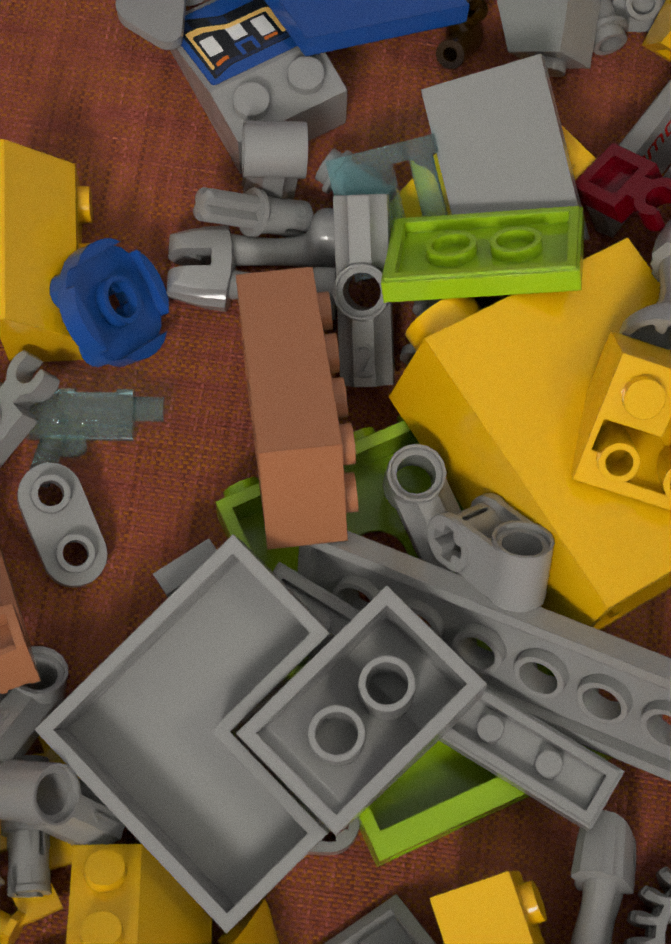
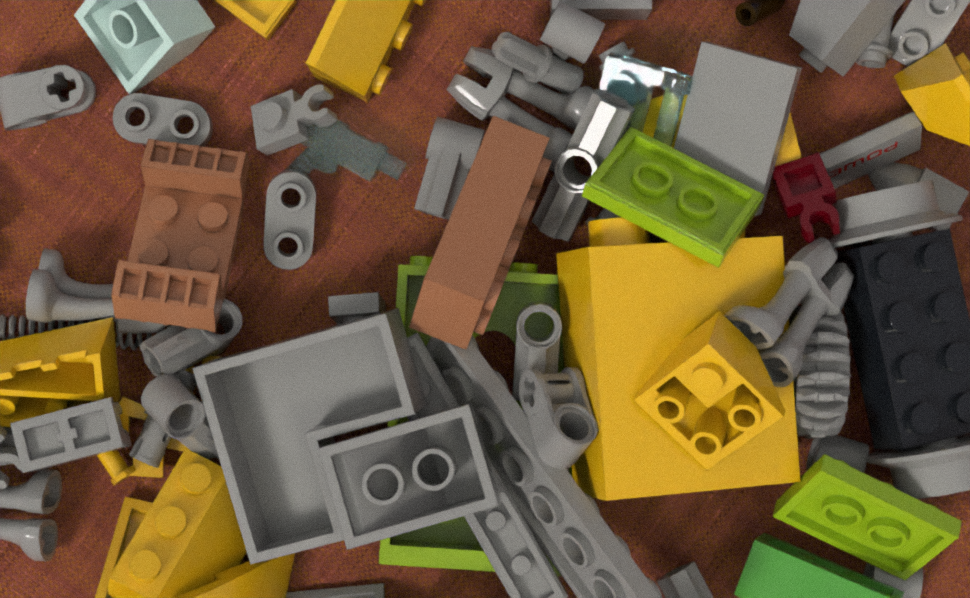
camera: 30 degrees right, 15 degrees up
(84, 303) = (379, 77): blue plate -> none
(211, 364) = (449, 158): none -> light grey piece

